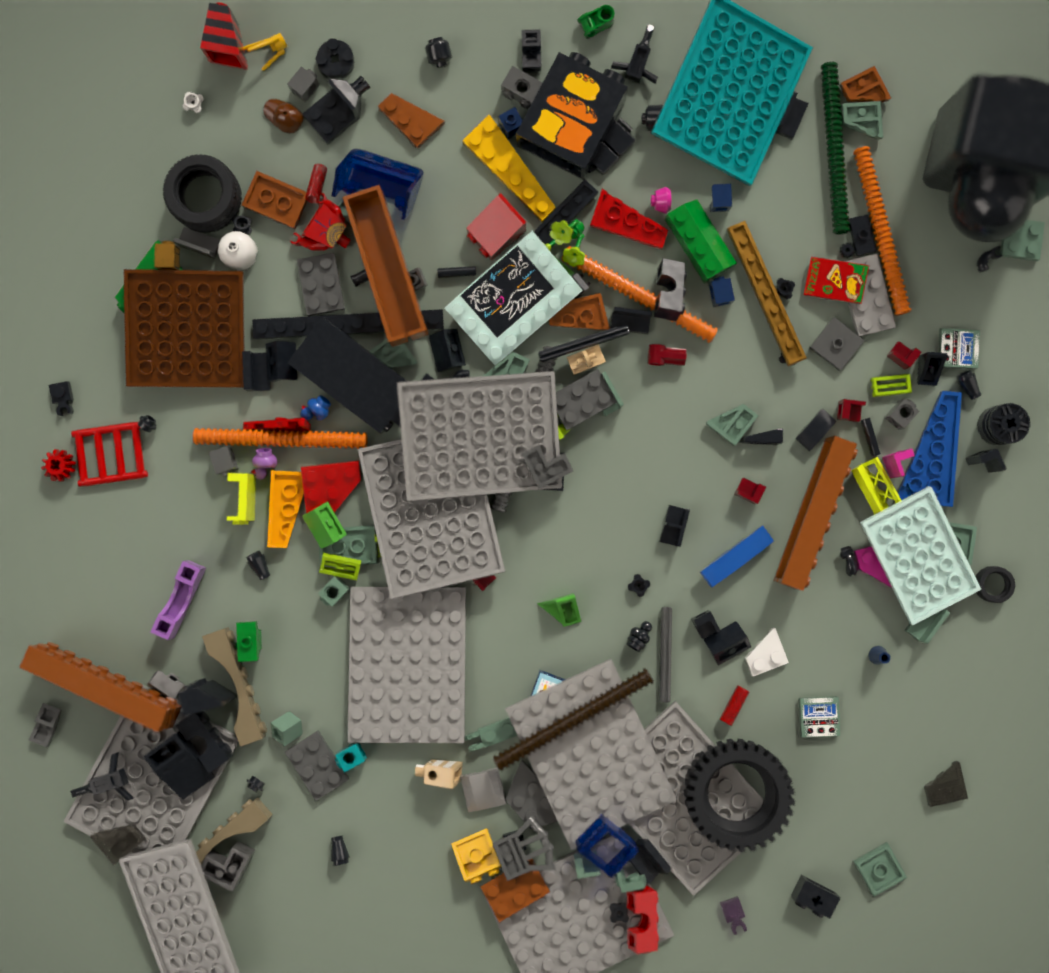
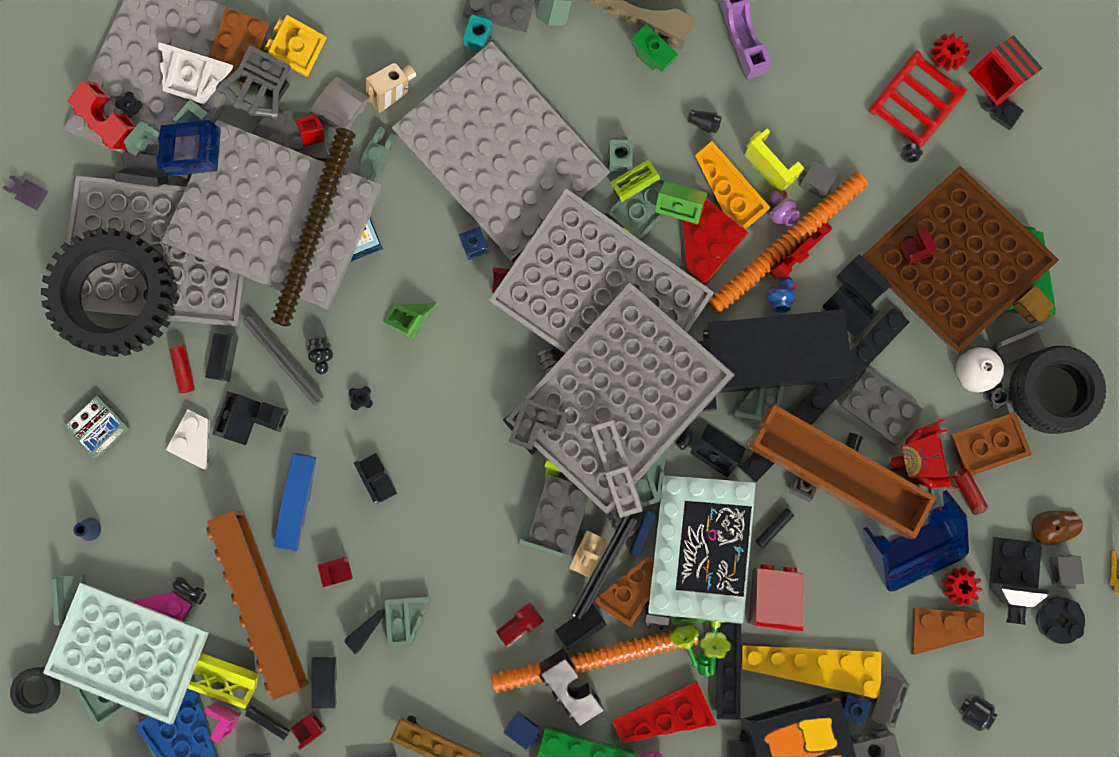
camera: 135 degrees right, 5 degrees down
(35, 420) = (1005, 70): none -> red slope
(203, 358) = (918, 247): none -> dark red panel
(371, 138) = (963, 577): none -> red gear
(479, 619) = (473, 243): none -> dark blue brick
(484, 107) = (890, 701): none -> dark grey slope
(517, 789) = (310, 130): none -> red slope
(521, 393) = (616, 467): none -> light grey slope
(542, 341) = (642, 533): none -> dark blue tile
(562, 896) = (190, 73): none -> white wing
(703, 690) = (221, 357): none -> black panel

